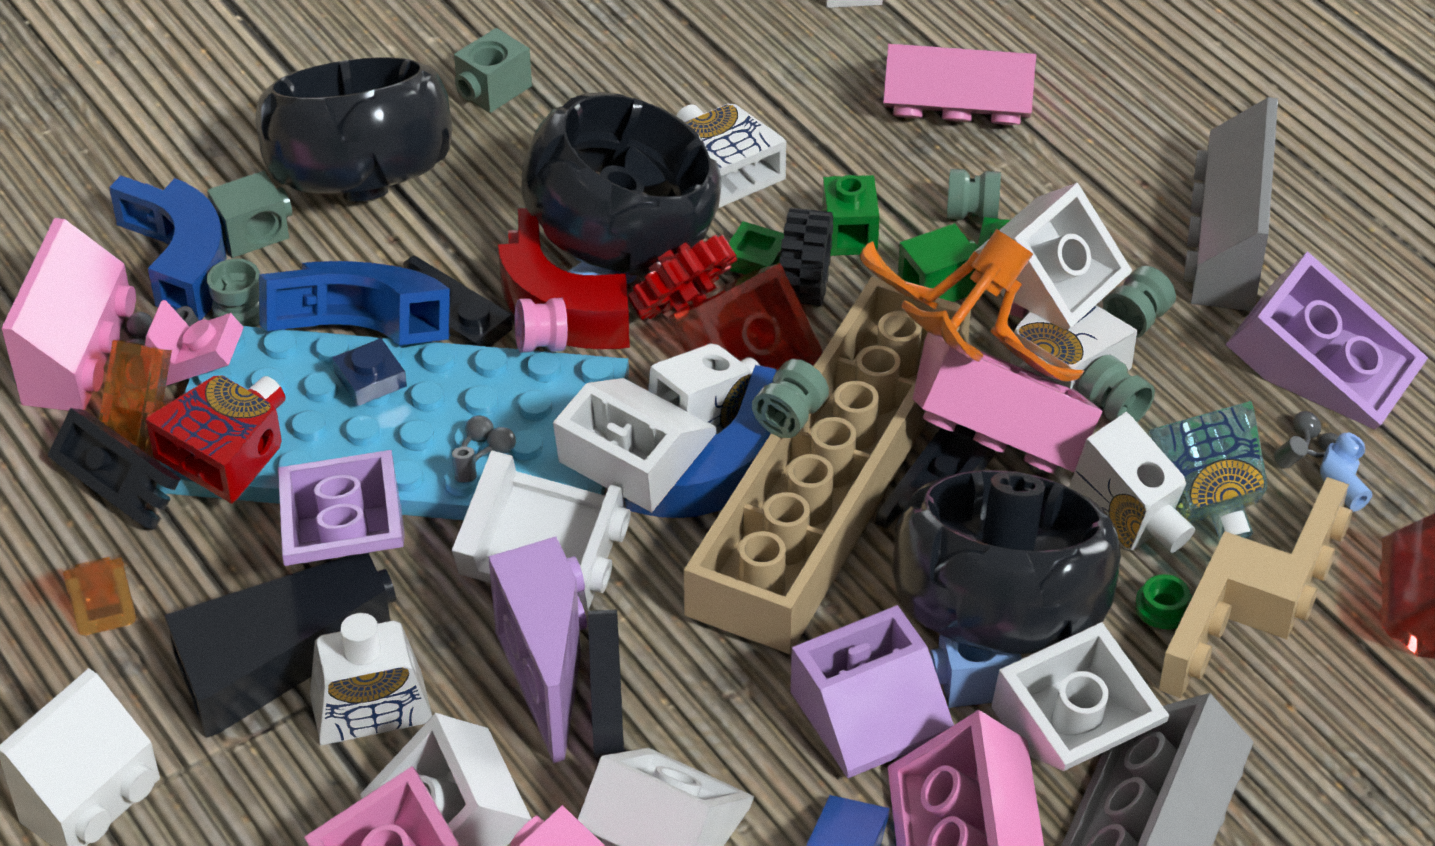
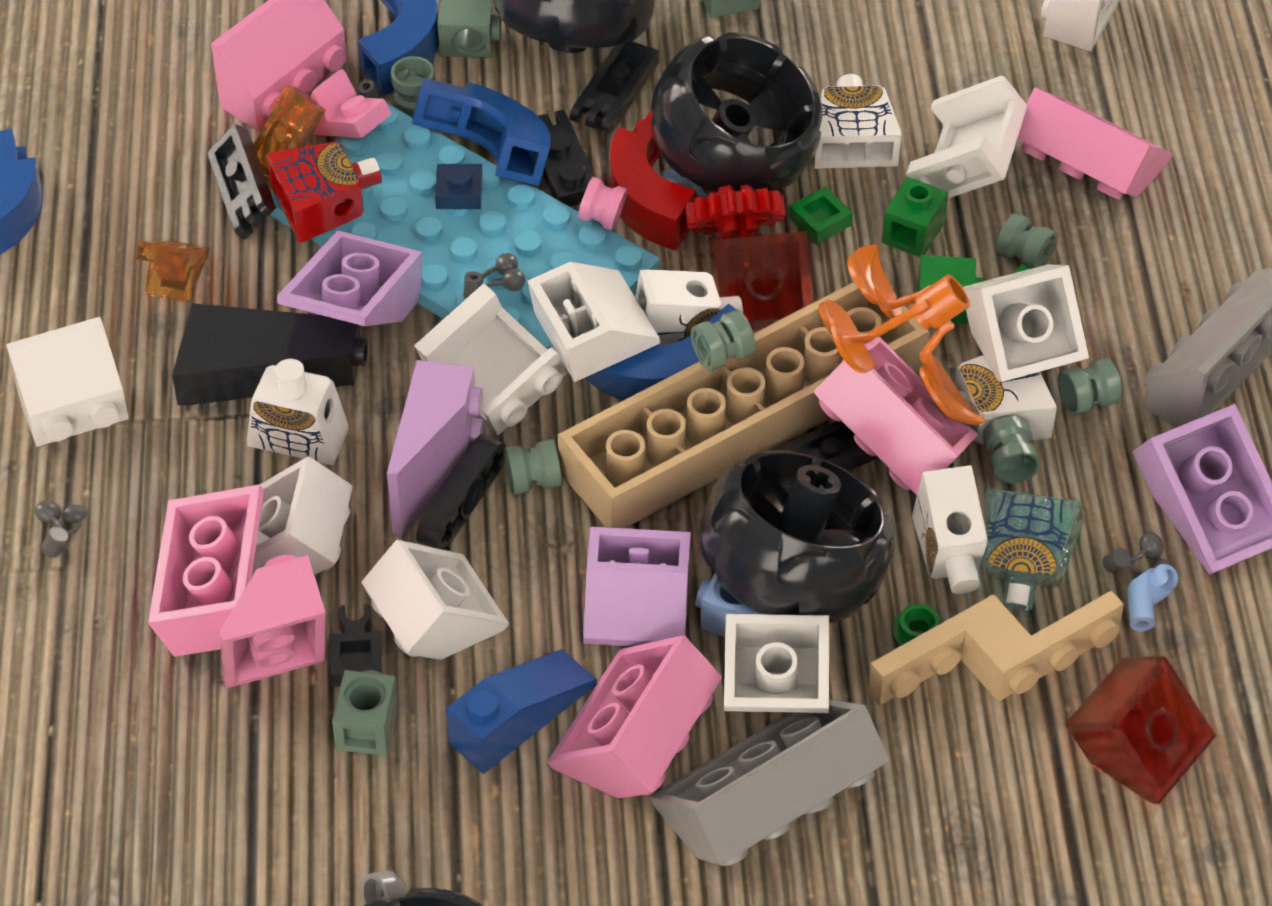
camera: 30 degrees right, 5 degrees up
(450, 210) = (615, 85): none -> black hinge
(664, 619) = (536, 466): none -> sand green wheel
(807, 253) = (843, 229): black tyre -> none
(855, 115) = (975, 137): none -> white panel

